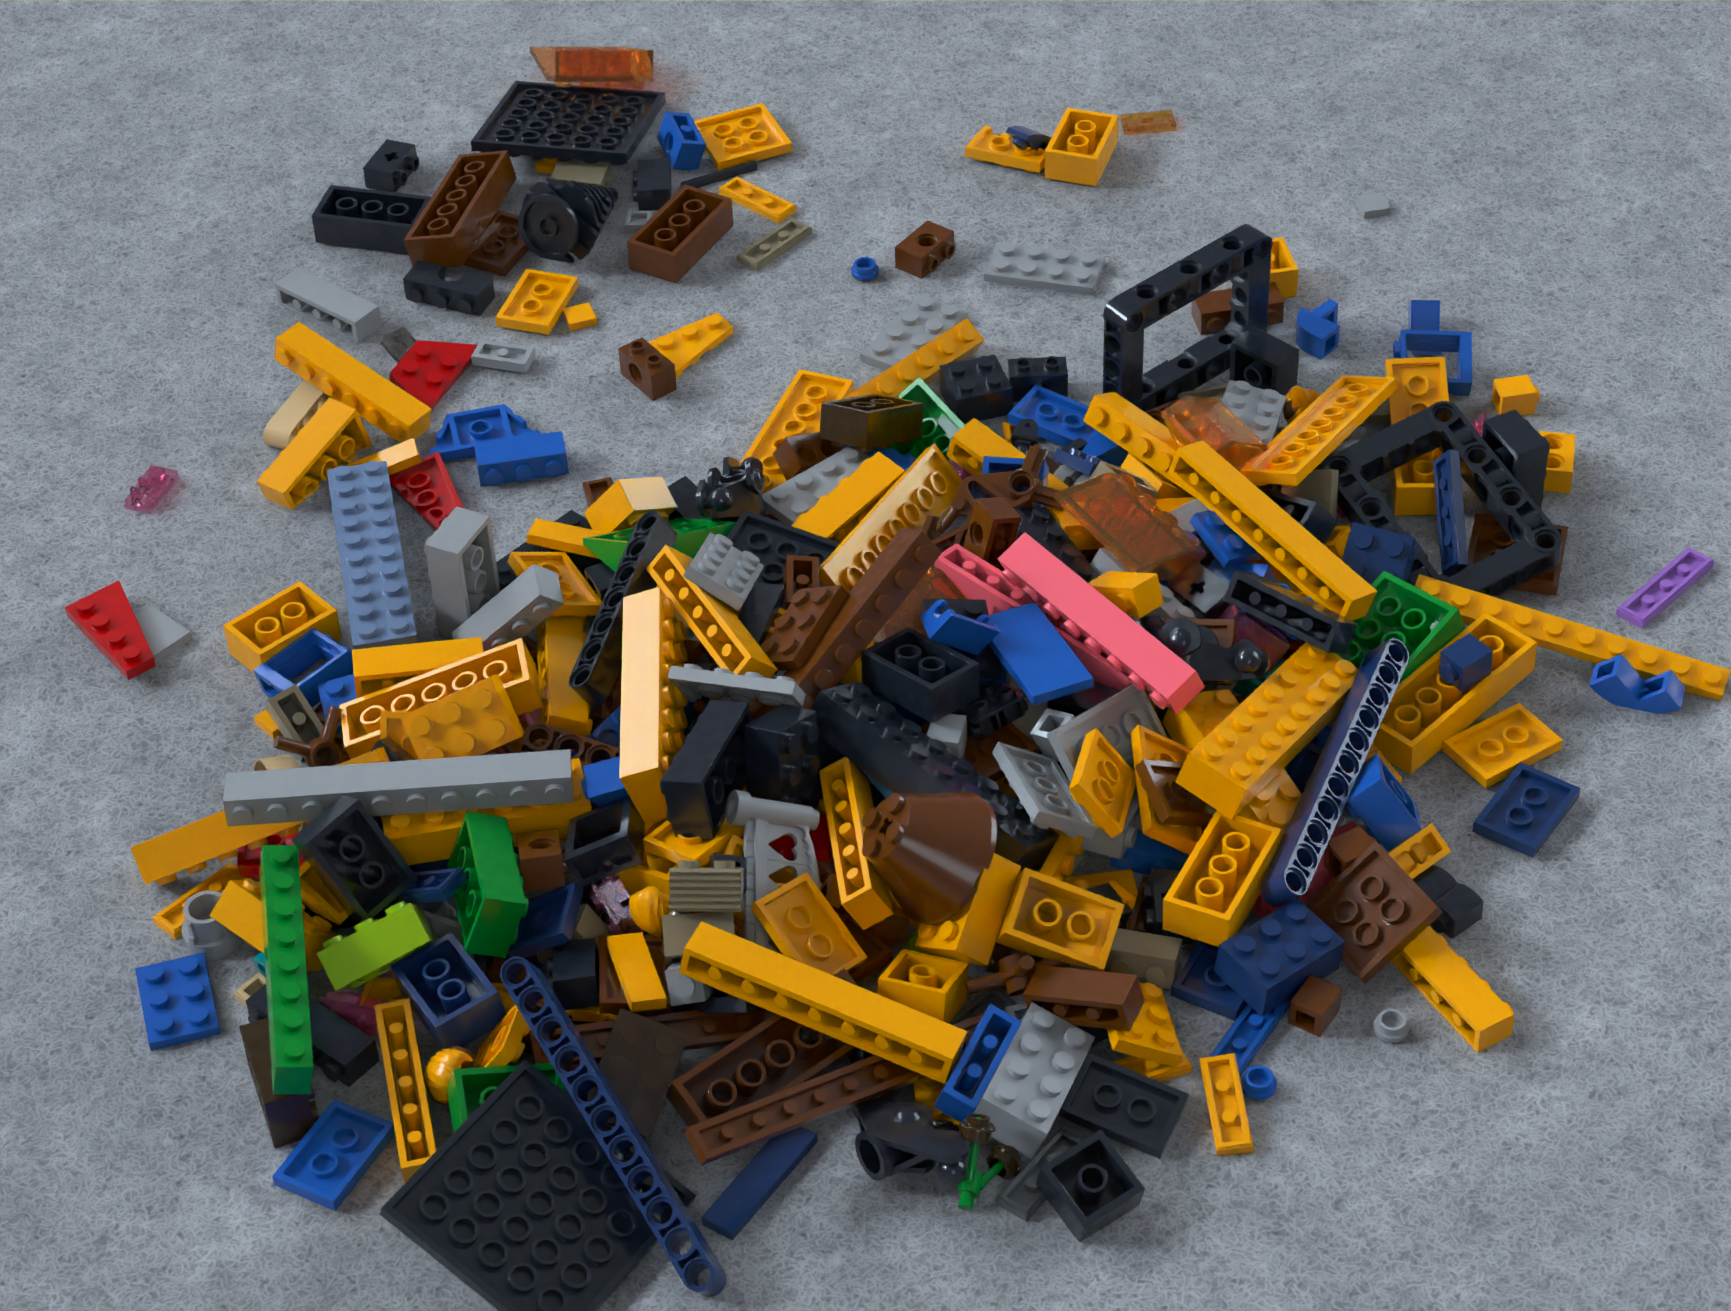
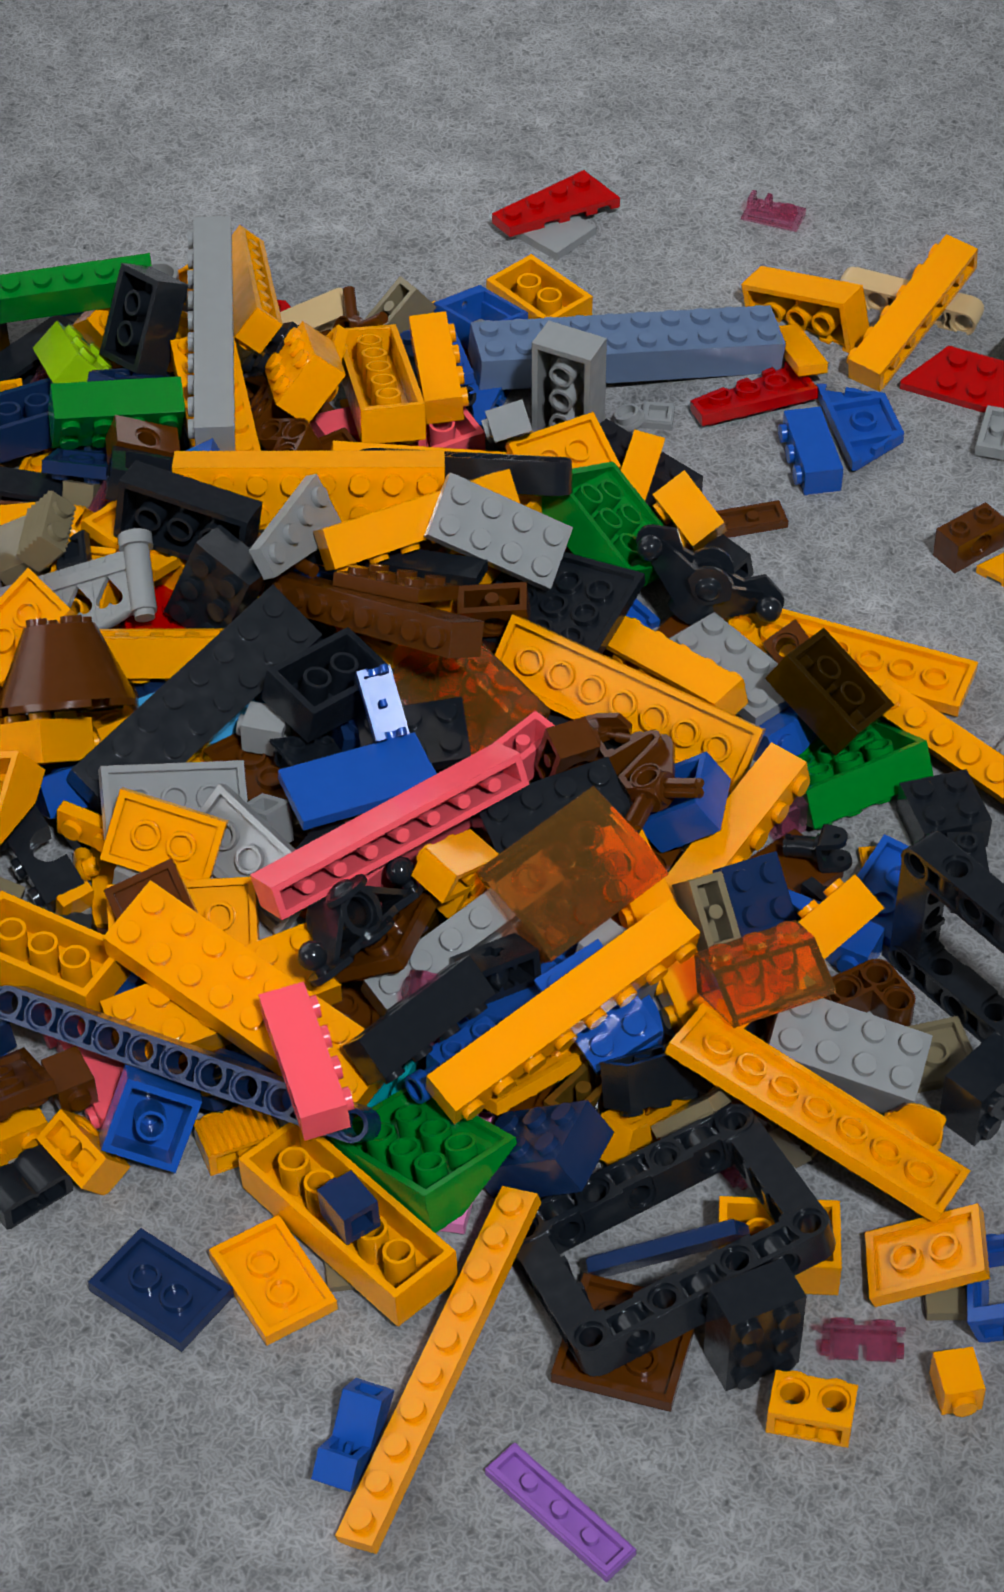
camera: 90 degrees right, 5 degrees up
(1357, 661) = (305, 1060): none -> coral brick

